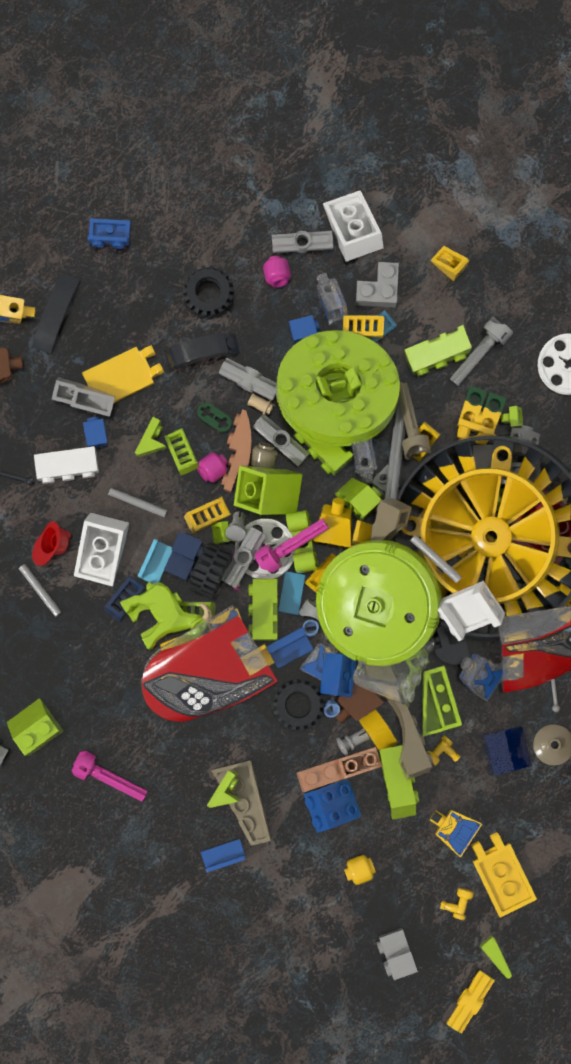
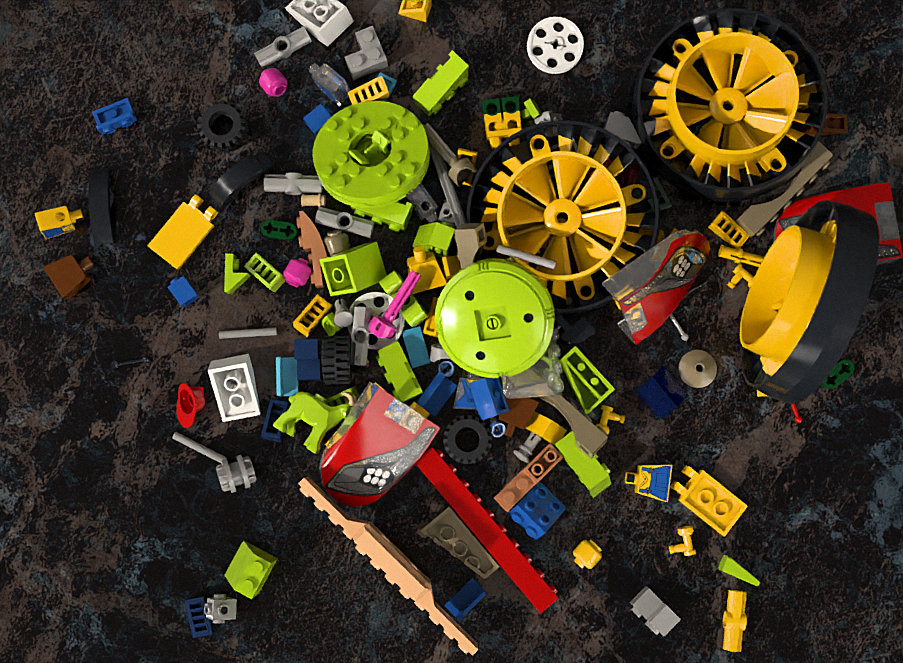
camera: 30 degrees left, 0 degrees up
(63, 631) = (236, 473): none -> light grey piece
(66, 464) = (171, 329): white brick -> none
(83, 396) = (157, 265): light grey slope -> none
(85, 765) = (310, 580): dark pink piece -> none
(172, 783) = (392, 562): none -> light nougat piece
(222, 795) = (440, 548): lime slope -> none
(275, 800) = (486, 530): none -> red brick
(470, 610) = (577, 286): white panel -> none
(480, 675) = (610, 339): clear torso -> none
(496, 333) = (482, 47): light grey piece -> none

